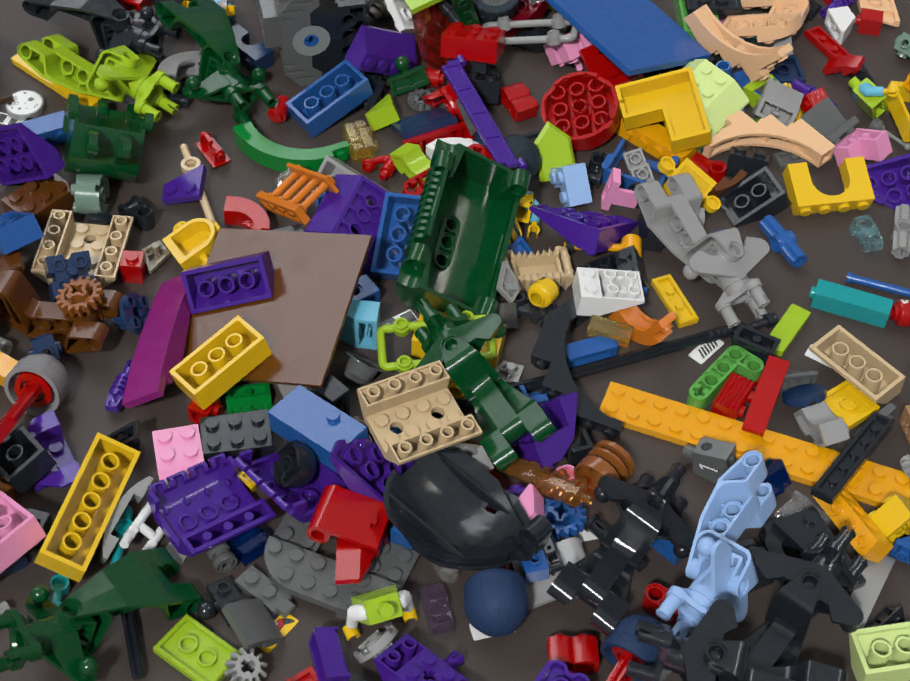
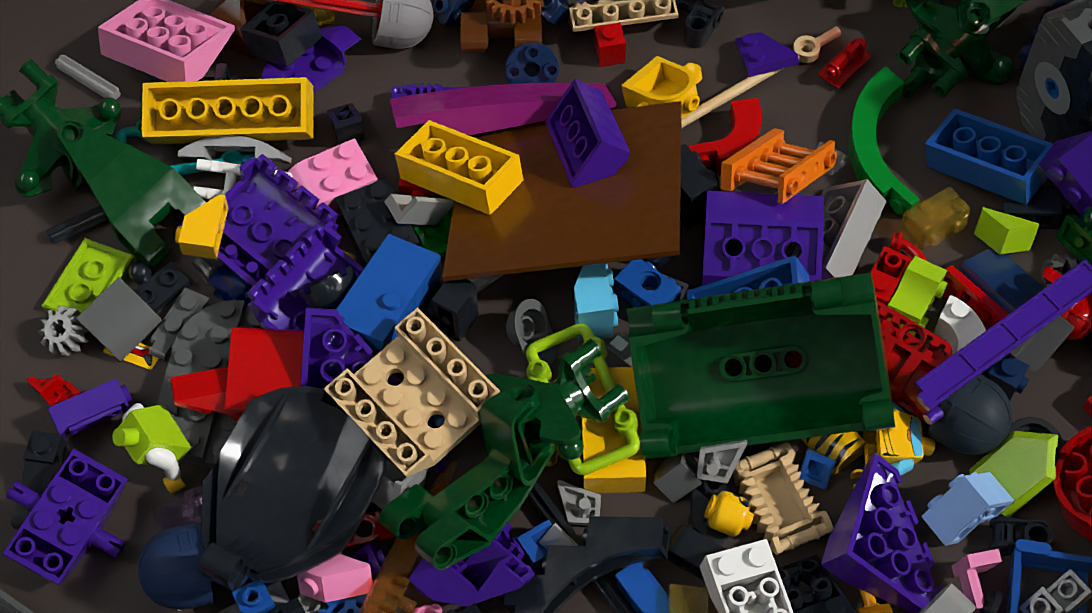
camera: 80 degrees right, 10 degrees up
(155, 255) = (637, 60): dark tan piece -> none
(210, 530) = (203, 229): none -> yellow slope
(241, 406) = (418, 209): none -> light grey panel
(279, 111) = (946, 105): red brick -> none
(376, 643) = (108, 453): light grey tile -> none
(395, 173) = (888, 273): none -> red slope
(534, 386) = (556, 536): none -> light grey piece

